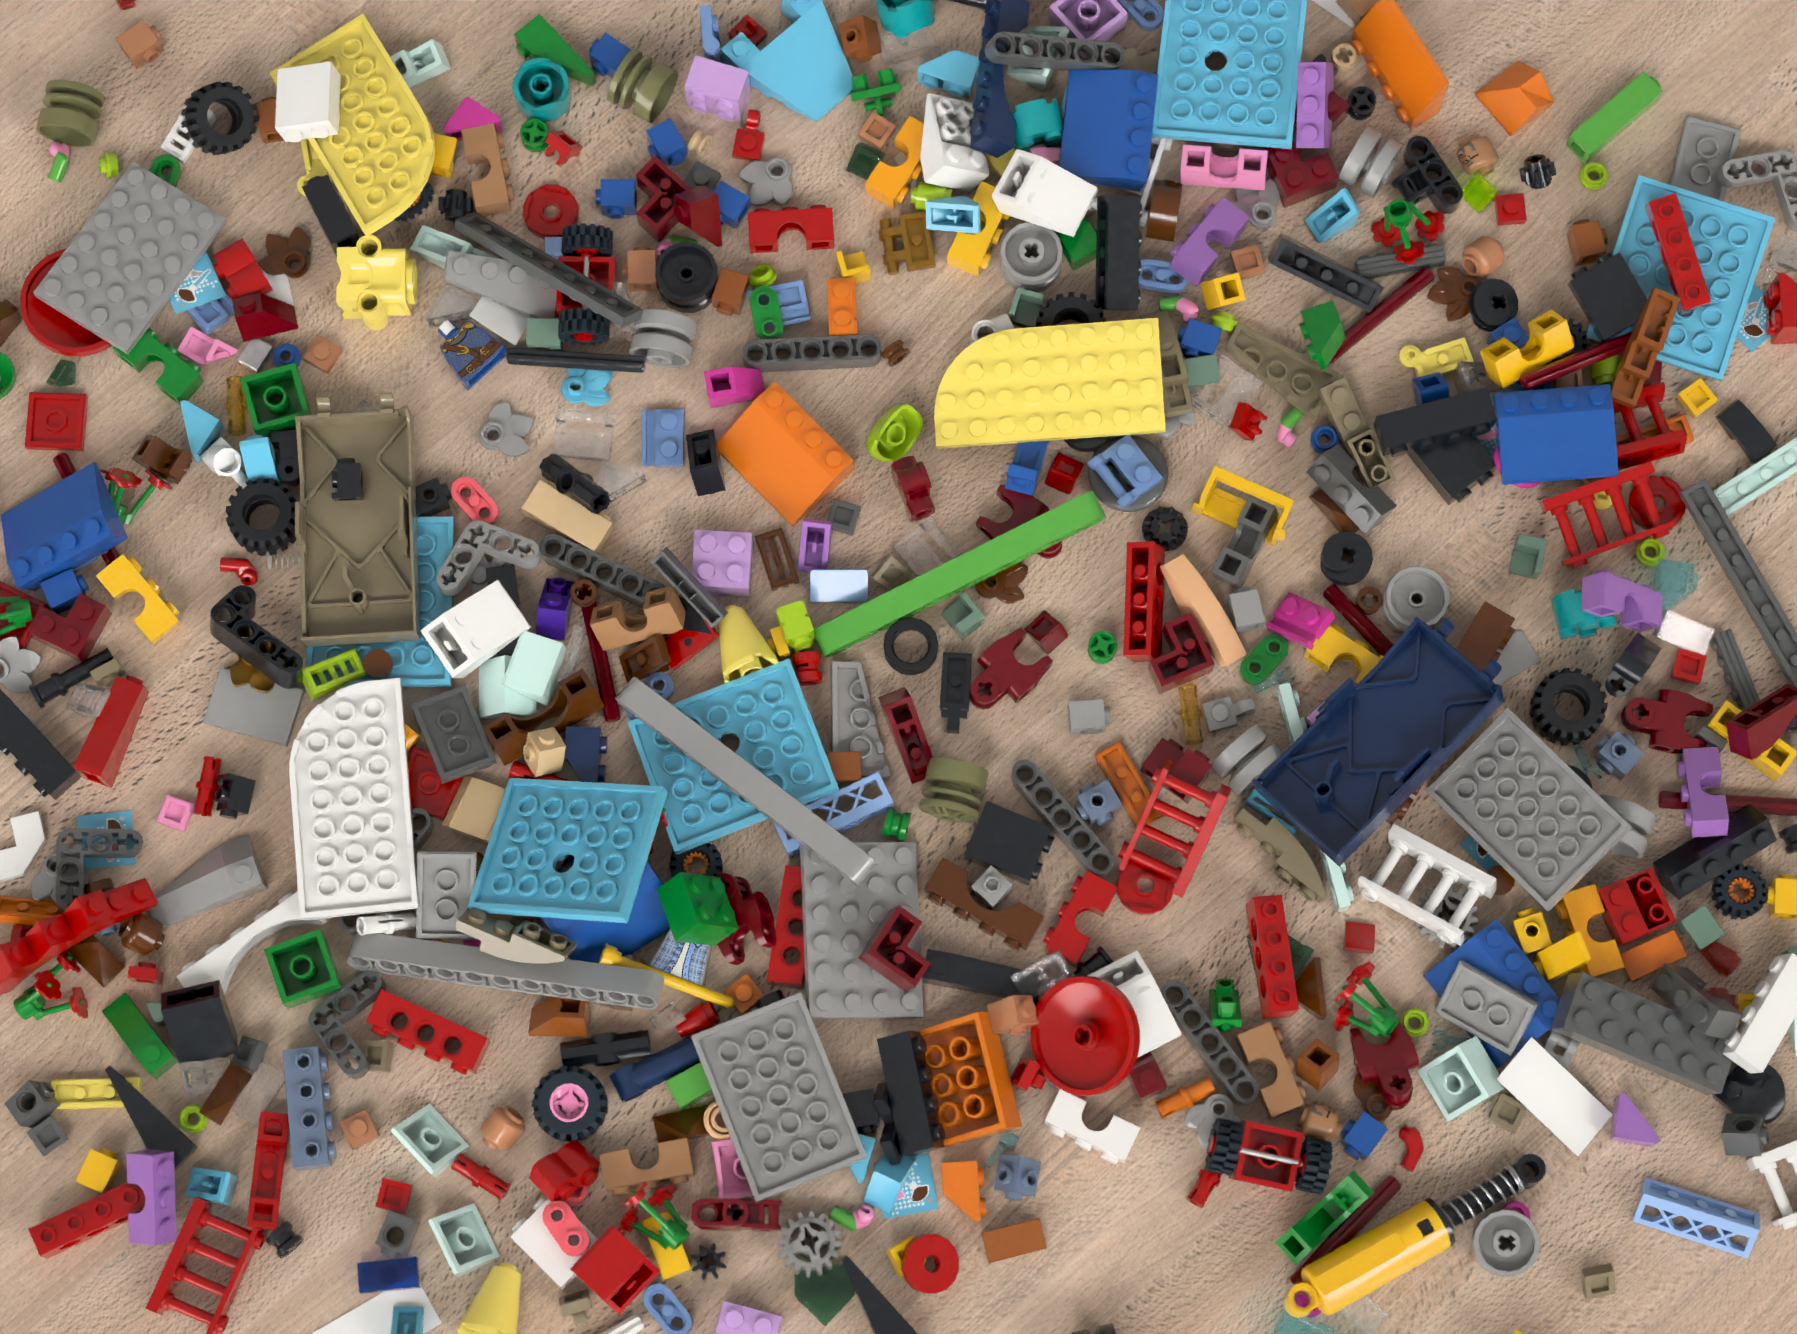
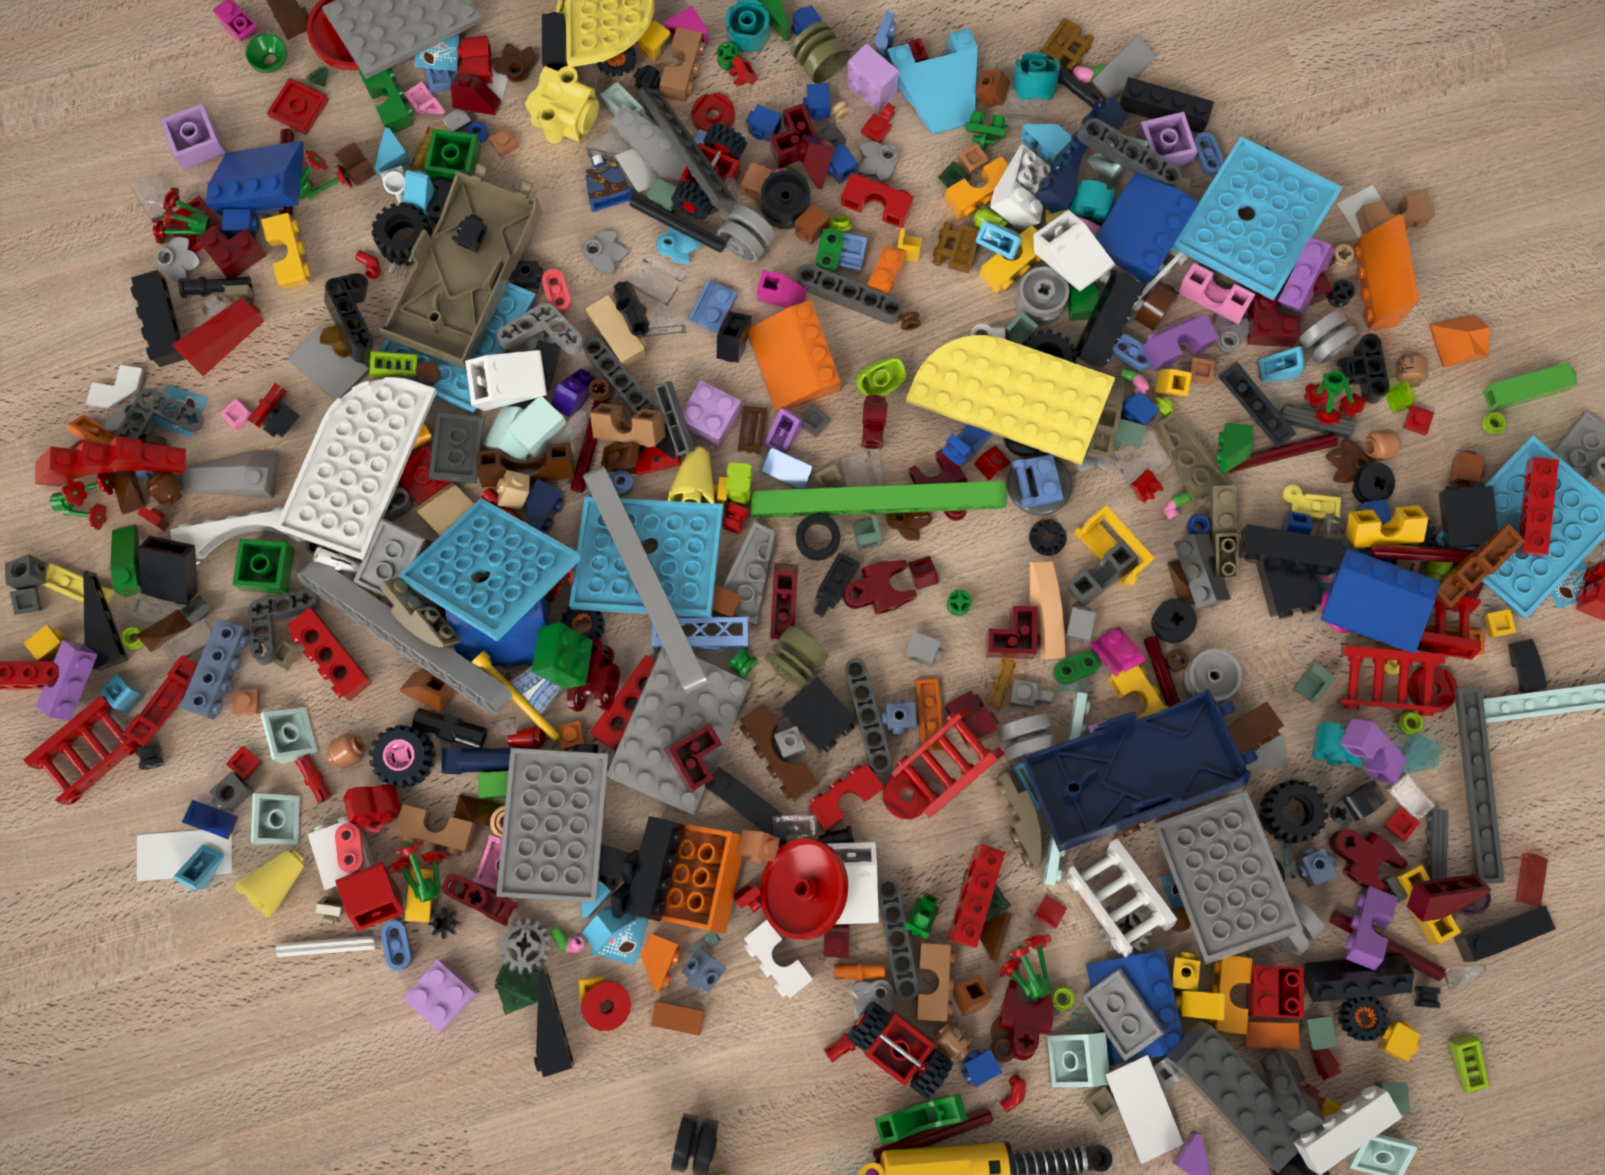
camera: 25 degrees right, 0 degrees up
(1143, 601) = (1005, 583): red brick -> none
(1537, 171) = (1452, 400): black gear -> none

